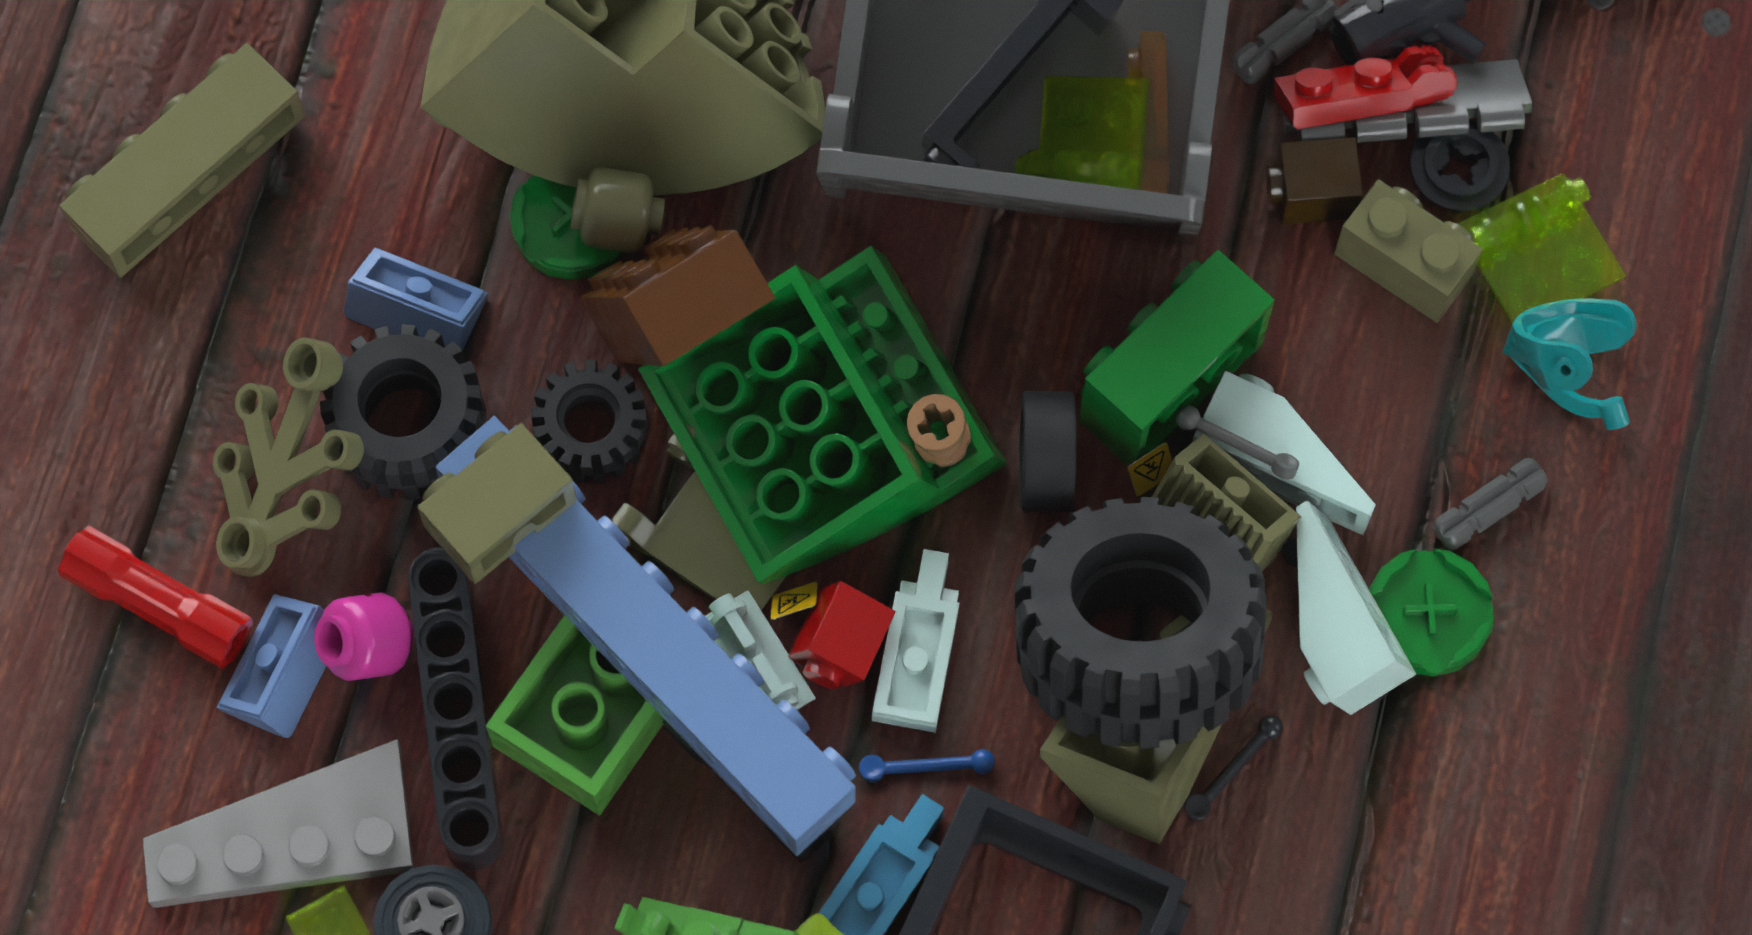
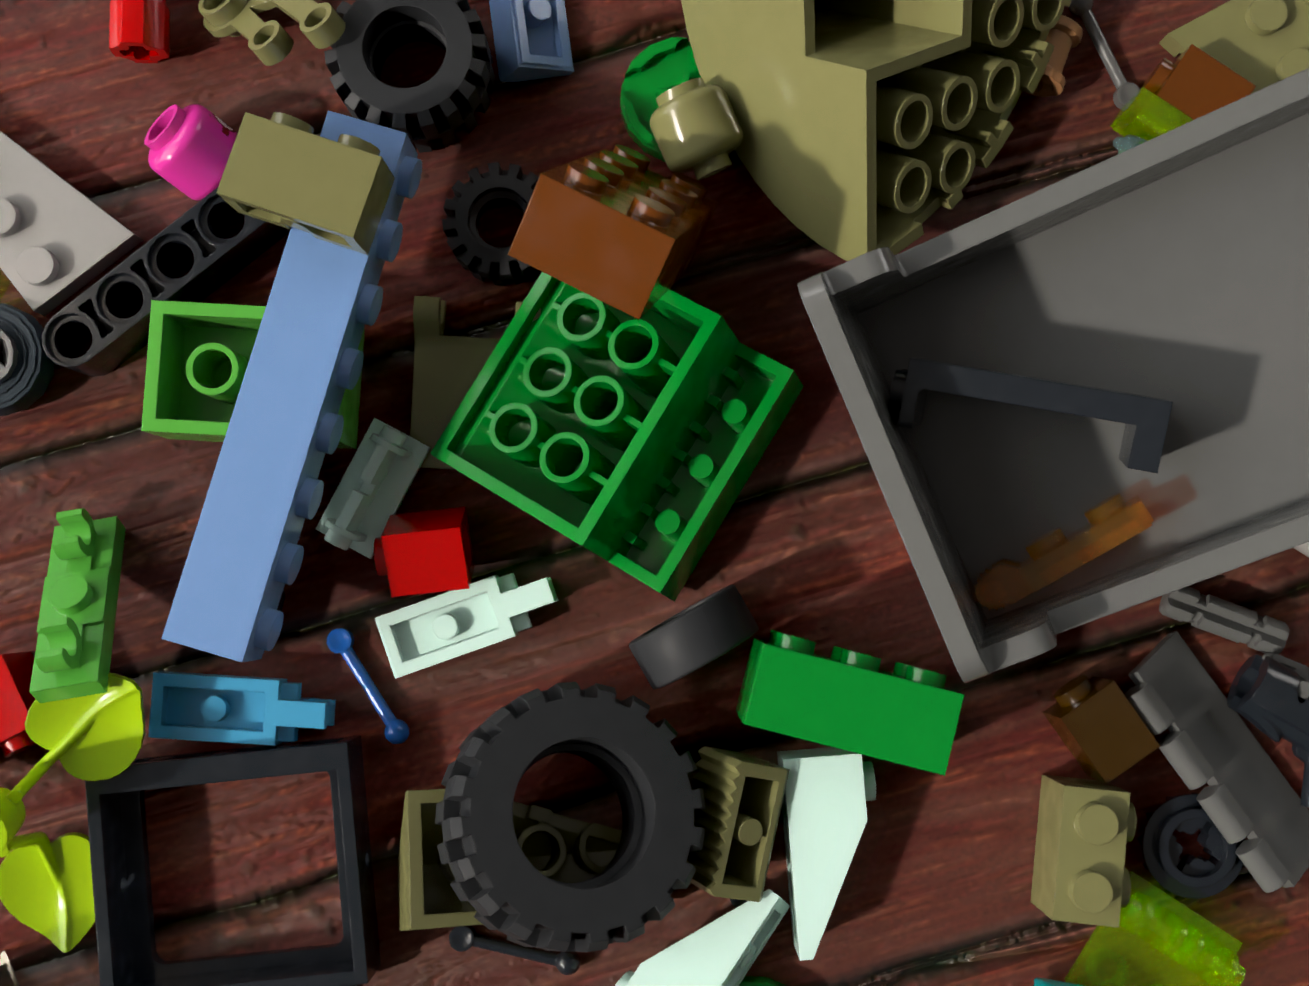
camera: 60 degrees right, 15 degrees up
(277, 668) = (126, 101): medium blue slope -> none
(794, 600) = (443, 491): yellow sticker -> none
(935, 409) = (645, 513): medium nougat bush -> none
(1091, 131) = (1009, 510): clear neon green hinge -> none
(1150, 469) = (735, 728): yellow sticker -> none
(1283, 464) = (797, 859): dark grey hinge -> none
(1365, 88) = (1215, 726): red hinge -> none

